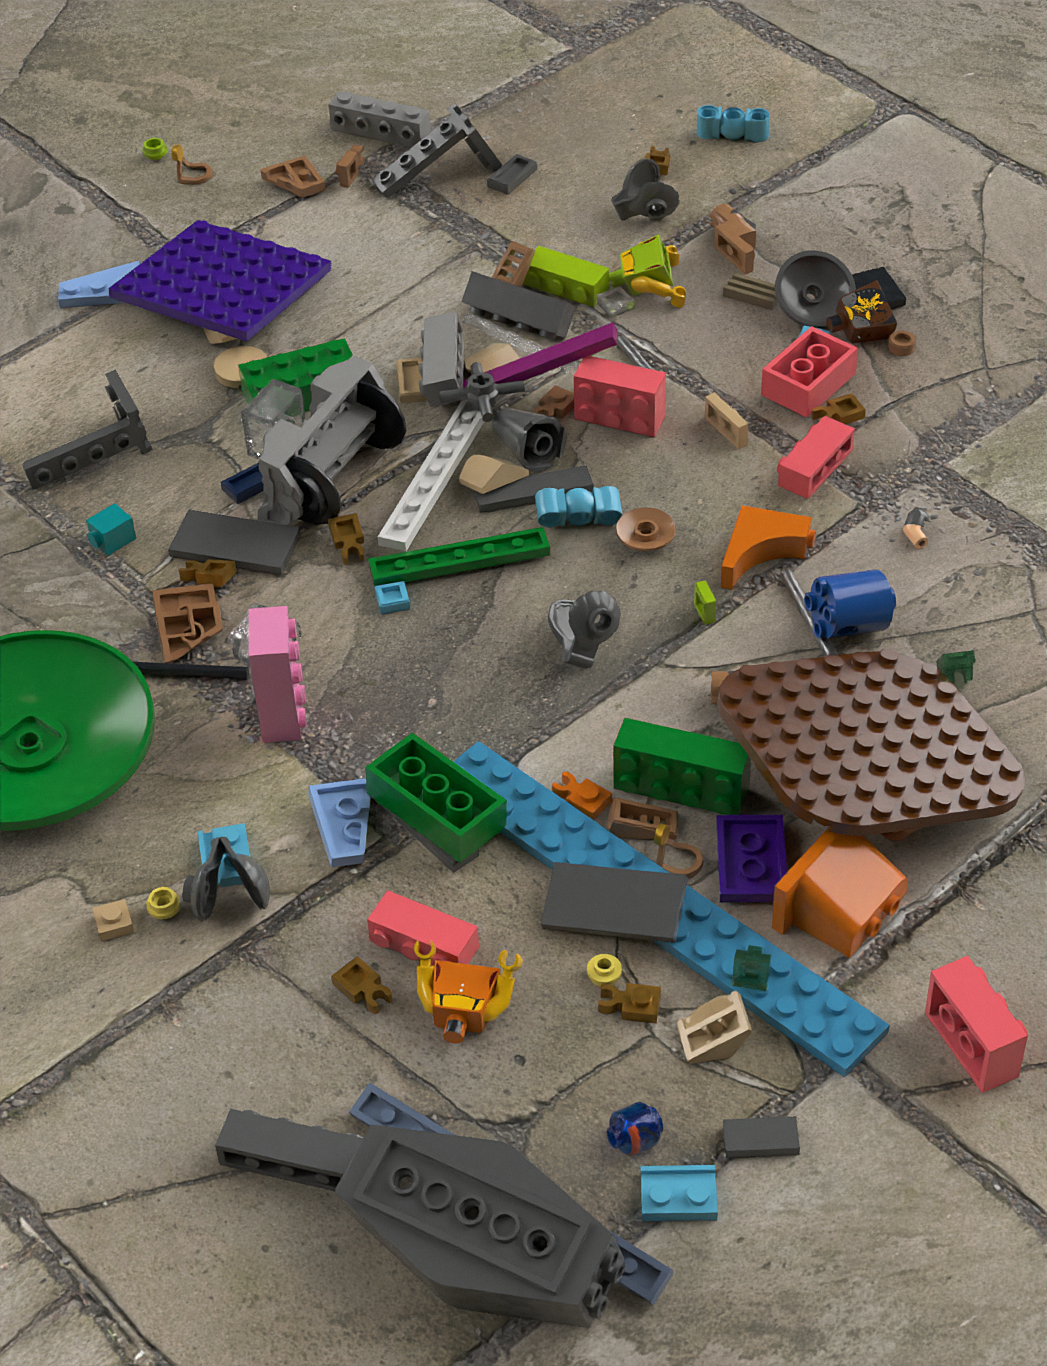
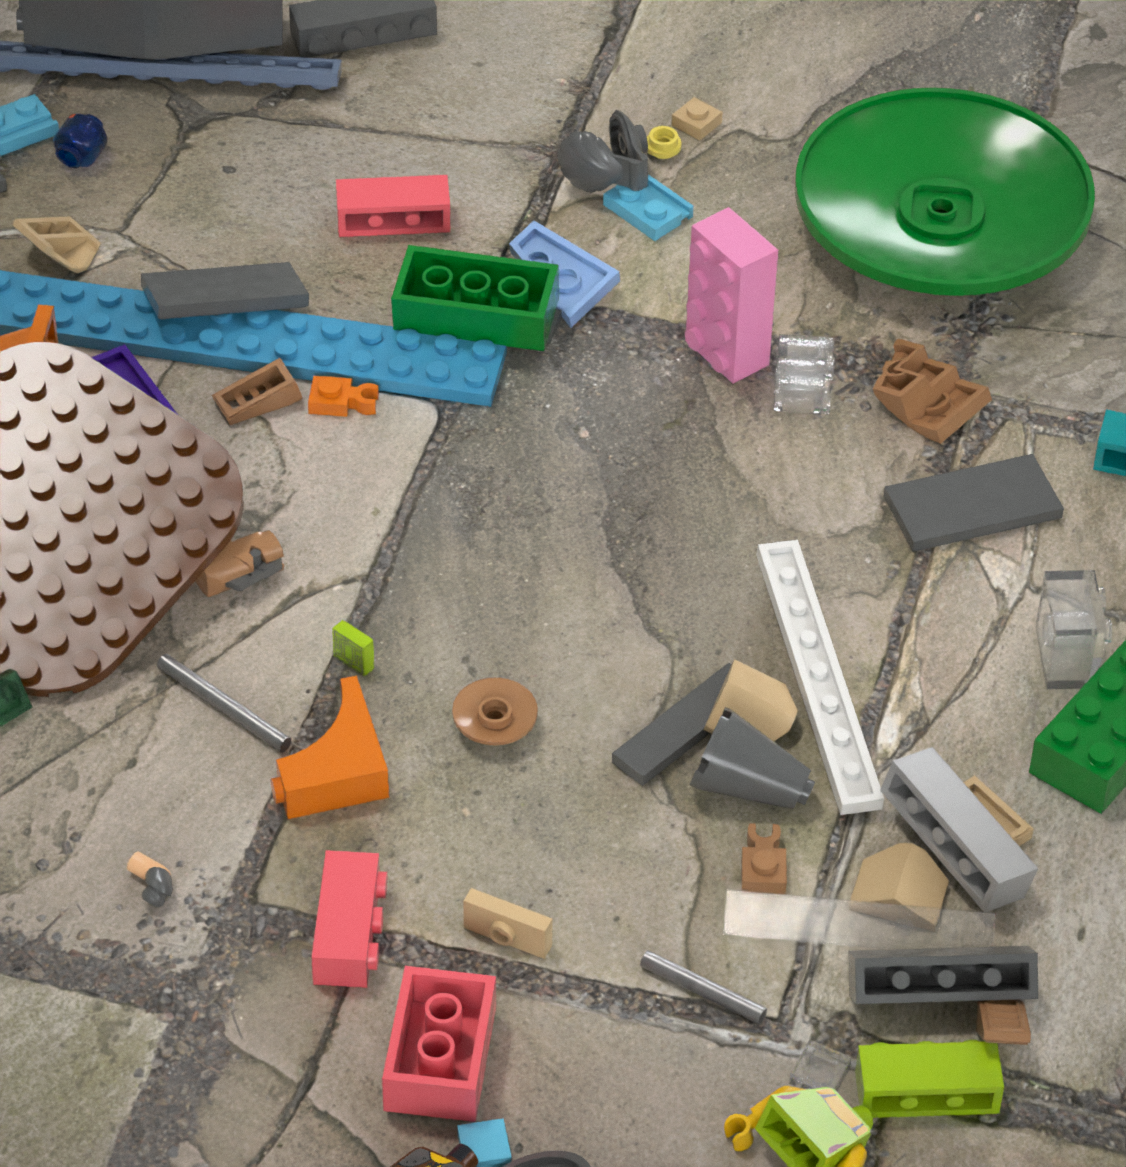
camera: 145 degrees right, 0 degrees up
(193, 670) = (886, 343): black bar -> none
(210, 572) = (955, 449): pearl gold plate -> none
(244, 484) = (1027, 589): dark blue tile -> none
(302, 461) = (976, 638): light grey piece -> none
(348, 535) = (847, 557): pearl gold plate -> none
(360, 981) = (416, 153): pearl gold plate -> none
(392, 597) = (730, 517): medium azure tile -> none
(459, 556) = (688, 588): green plate -> none
(464, 994) = (310, 170): torso -> none
(481, 391) = (852, 784): dark grey bar -> none
(555, 355) = (804, 842): magenta tile -> none
(576, 625) = (484, 547): dark grey animal -> none
(578, 506) = (600, 700): medium azure piece -> none
(604, 976) = (198, 252): light yellow plate -> none
(619, 395) = (668, 865): coral brick -> none
(636, 1002) = (153, 244): pearl gold plate -> none
(661, 839) = (199, 395): medium nougat piece -> none
(681, 767) = (258, 419): green brick -> none
(751, 968) = (43, 270): clear green tile -> none
(842, 409) = (359, 1021): pearl gold plate -> none
(850, 604) = (162, 684): blue cylinder -> none

